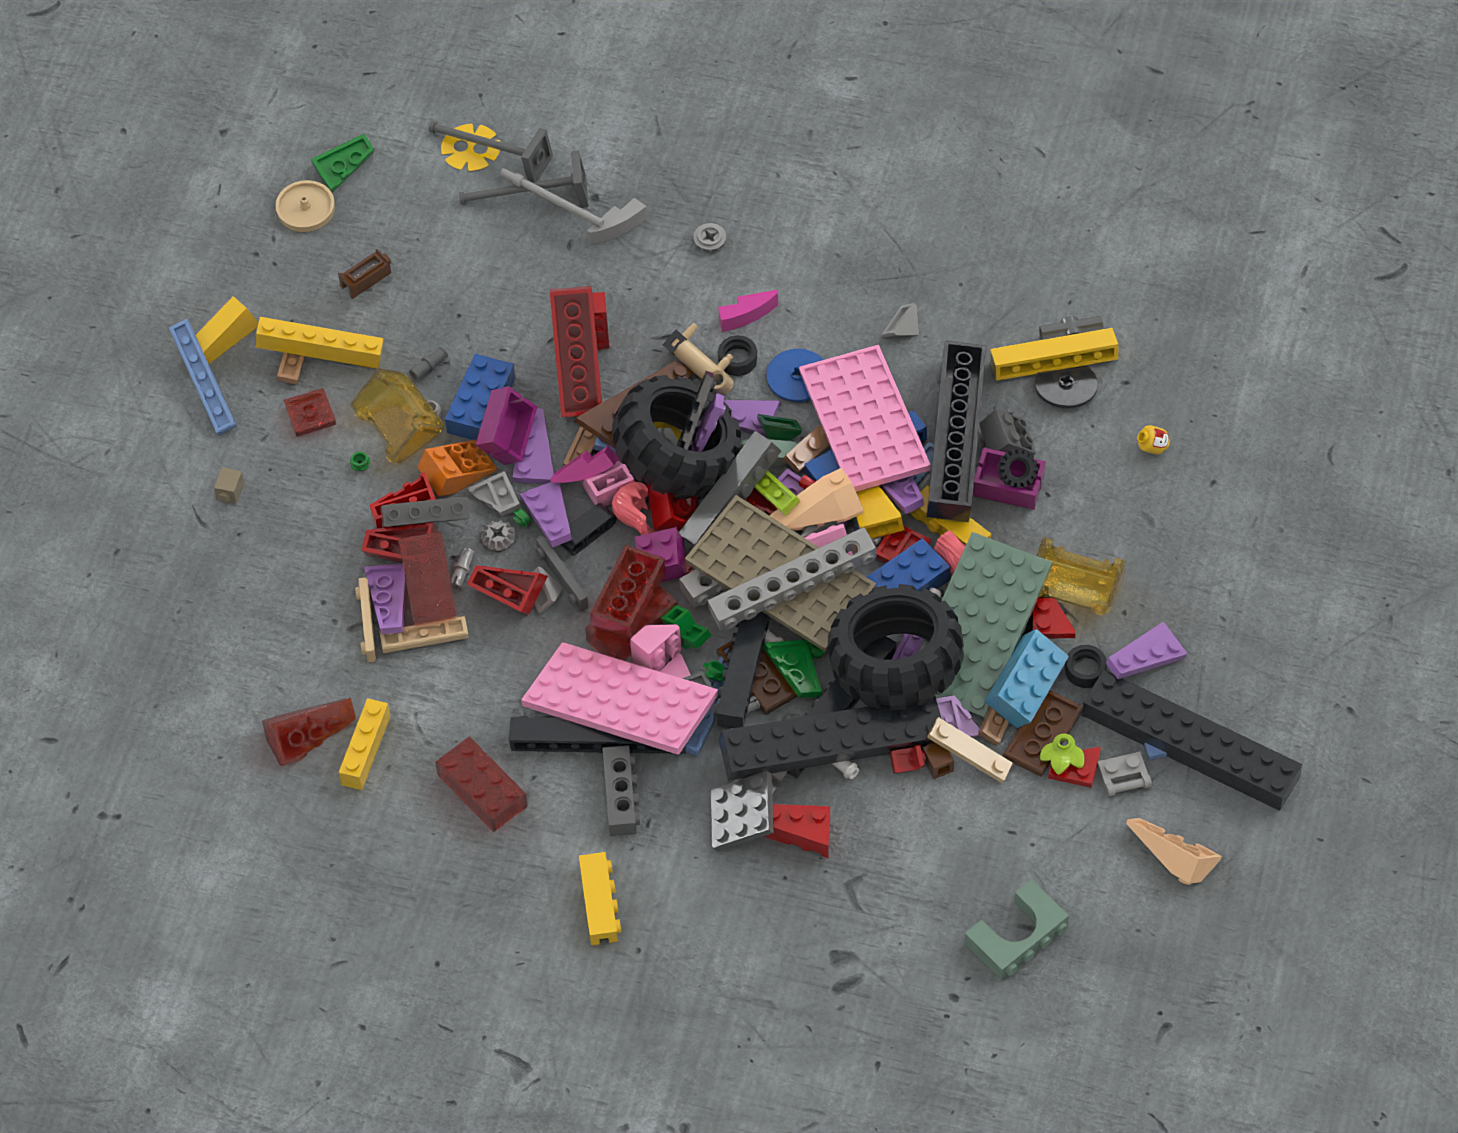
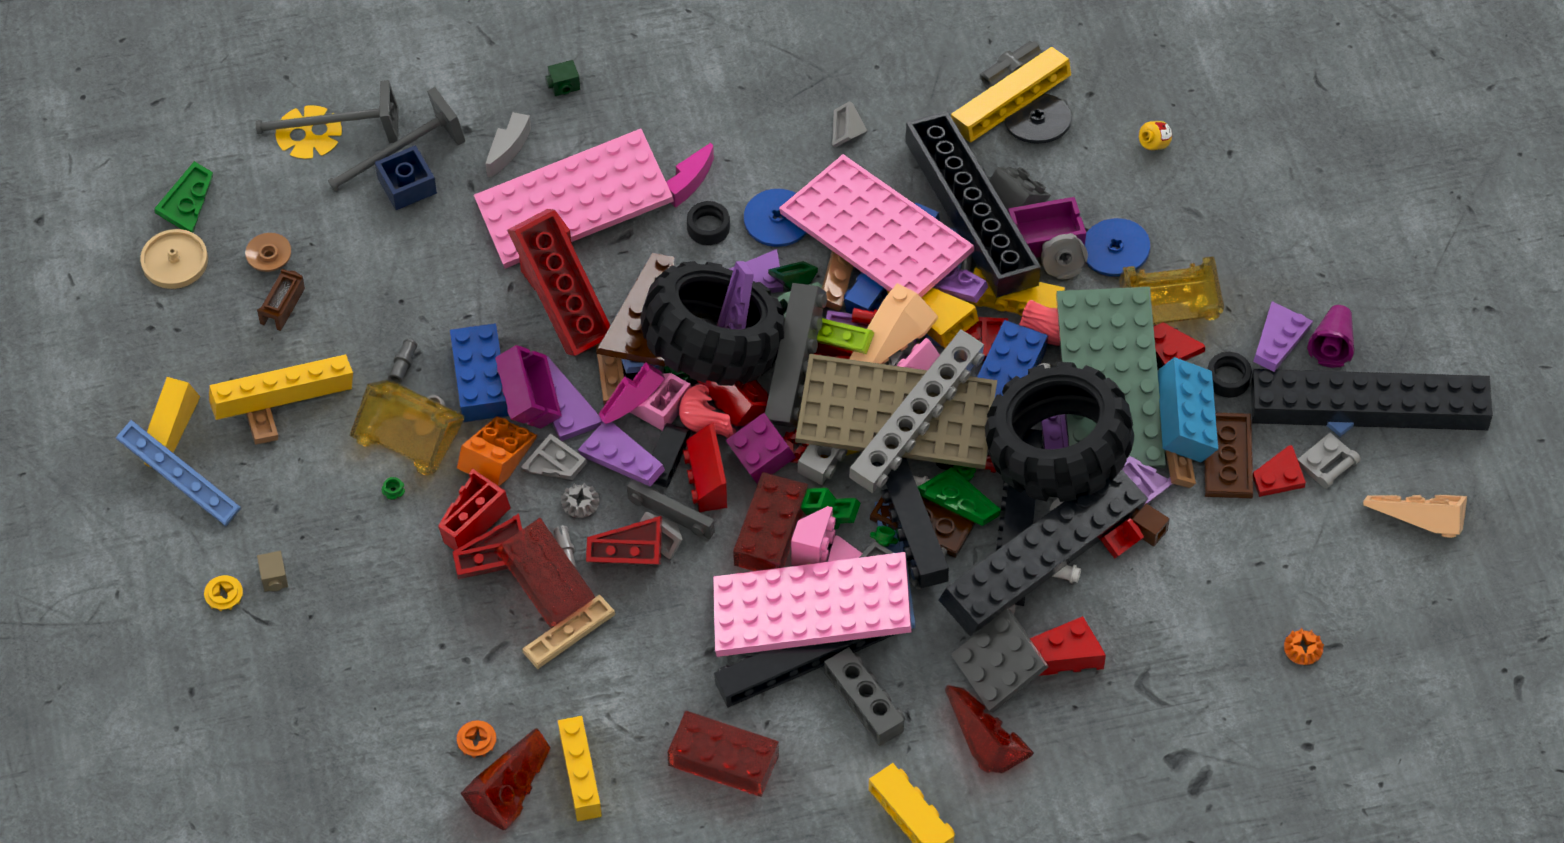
camera: 30 degrees left, 0 degrees up
(176, 482) = (232, 588): none -> yellow gear
(301, 678) = (469, 732): none -> orange gear
(309, 412) = (310, 461): clear red plate -> none
(368, 645) = (518, 664): tan plate -> none
(377, 231) = (266, 245): none -> medium nougat dish
(388, 595) = (508, 607): medium lavender wing -> none
(425, 511) = (503, 507): dark grey brick -> none
(518, 216) = (405, 177): none -> dark blue brick
(520, 181) = (387, 142): light grey bar -> none
(521, 518) = (594, 472): green plate -> none
(609, 547) = (706, 470): none -> red slope
(628, 592) = (761, 496): clear red brick -> none
(651, 285) = (584, 189): none -> bright pink plate
(695, 186) = (563, 78): none -> dark green brick
(696, 869) = (985, 737): none -> clear red wedge
(697, 361) = (675, 245): tan piece -> none
(699, 405) = (721, 289): black wing -> none
(711, 230) = (604, 114): light grey gear -> none
(969, 750) = (1177, 501): tan plate -> none
(1005, 956) = (1331, 684): sand green arch -> none
(1007, 923) = (1296, 652): none -> orange gear
(1012, 497) = (1064, 244): none -> light grey plate
(1030, 468) = (1066, 208): black tyre -> none
(1061, 755) = (1264, 468): lime plate -> none
(1076, 523) = (1122, 233): none -> blue piece
(1193, 673) = (1333, 338): none -> magenta cone

